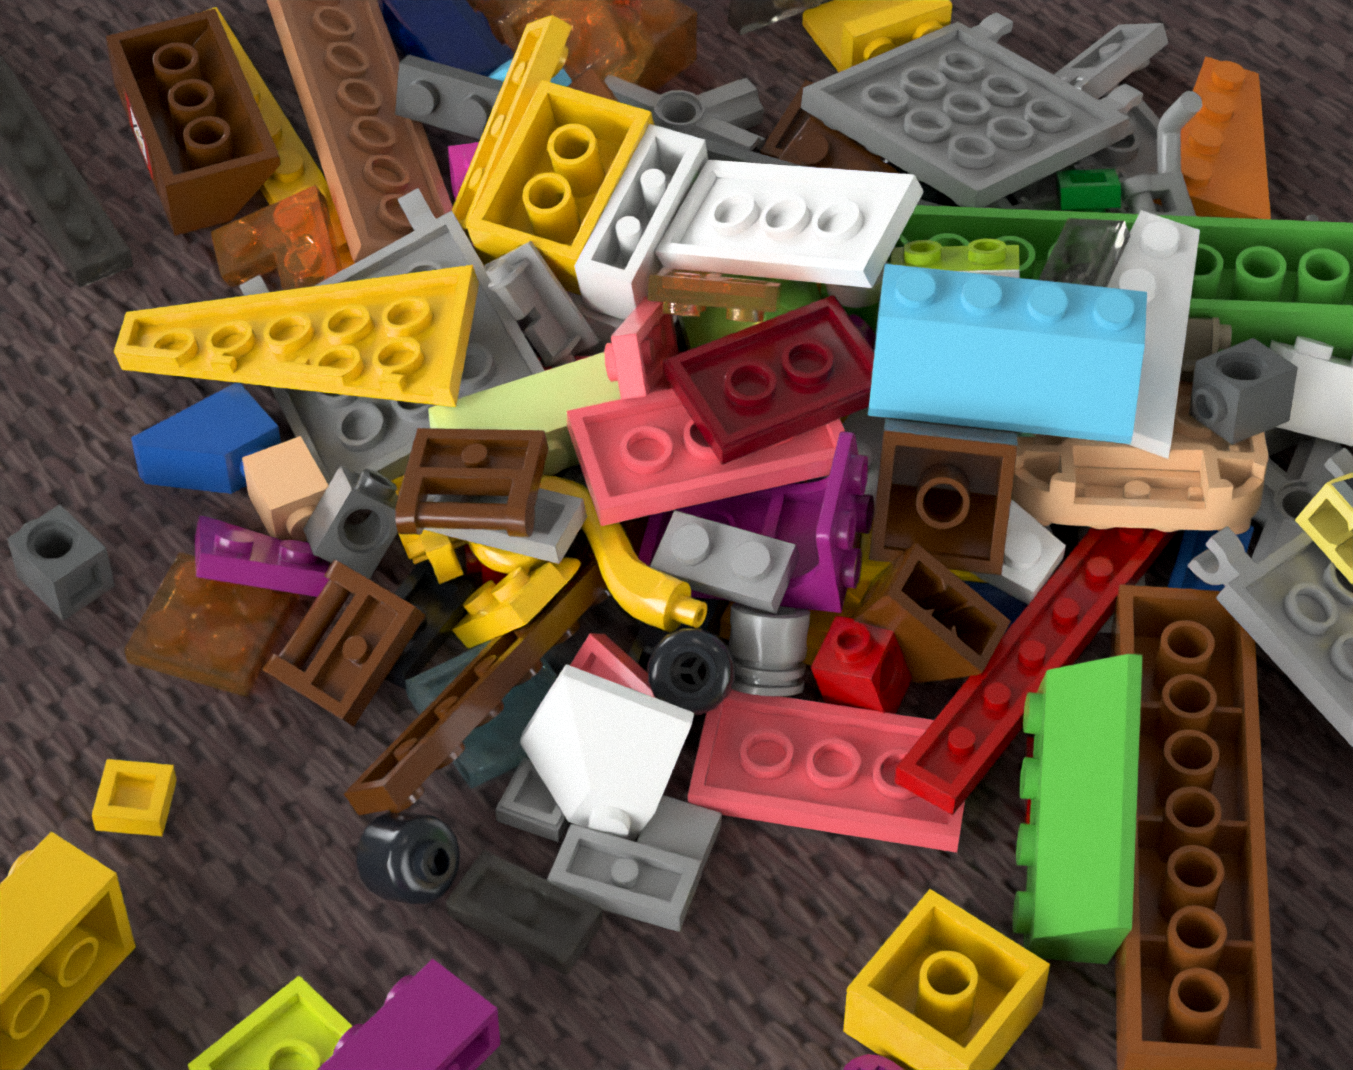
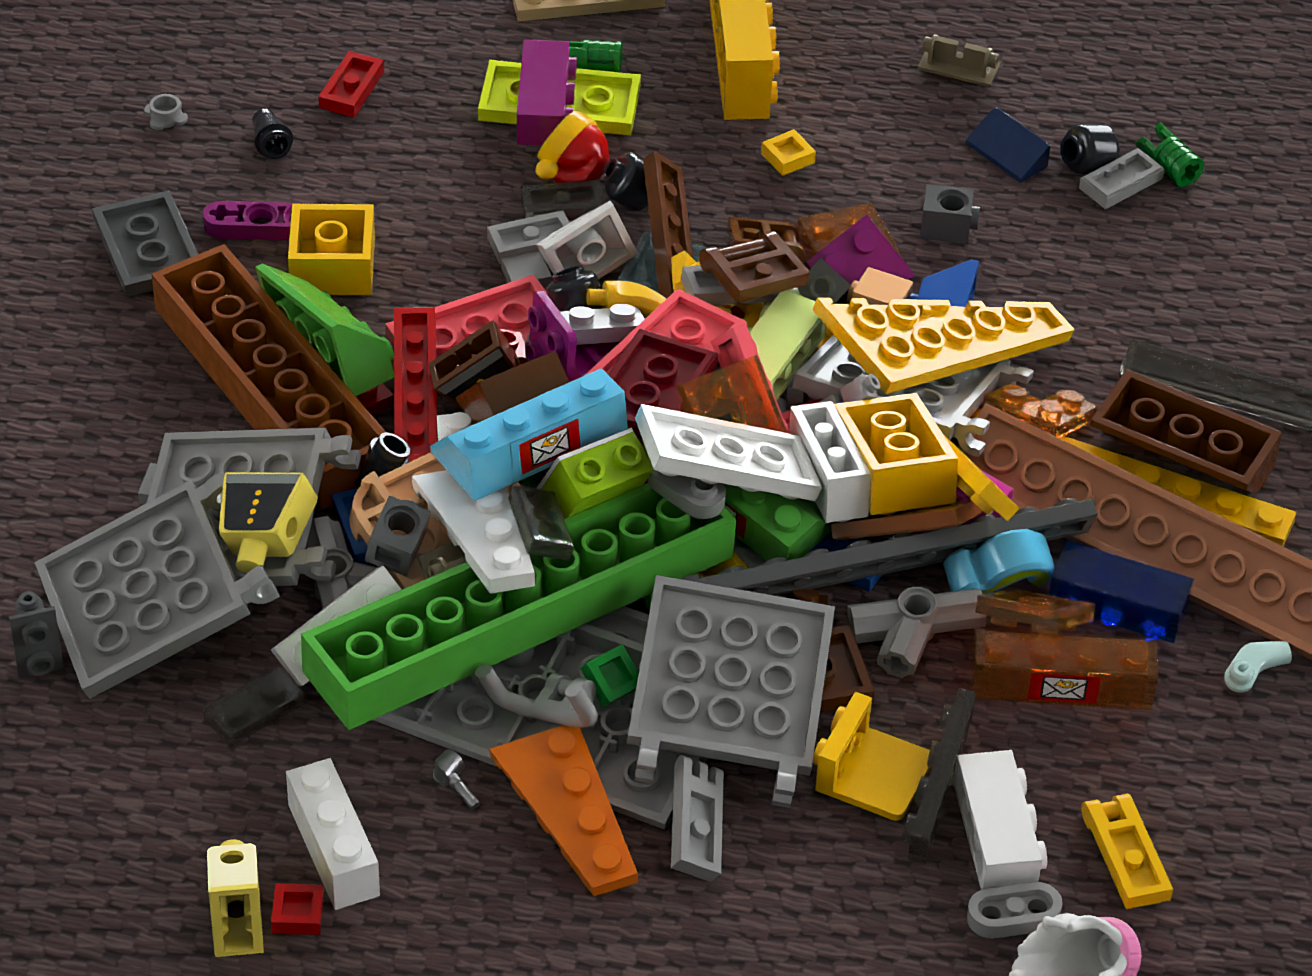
camera: 140 degrees right, 5 degrees down
(459, 945) = (574, 151): none -> piece
(1154, 553) = (384, 455): none -> black cone

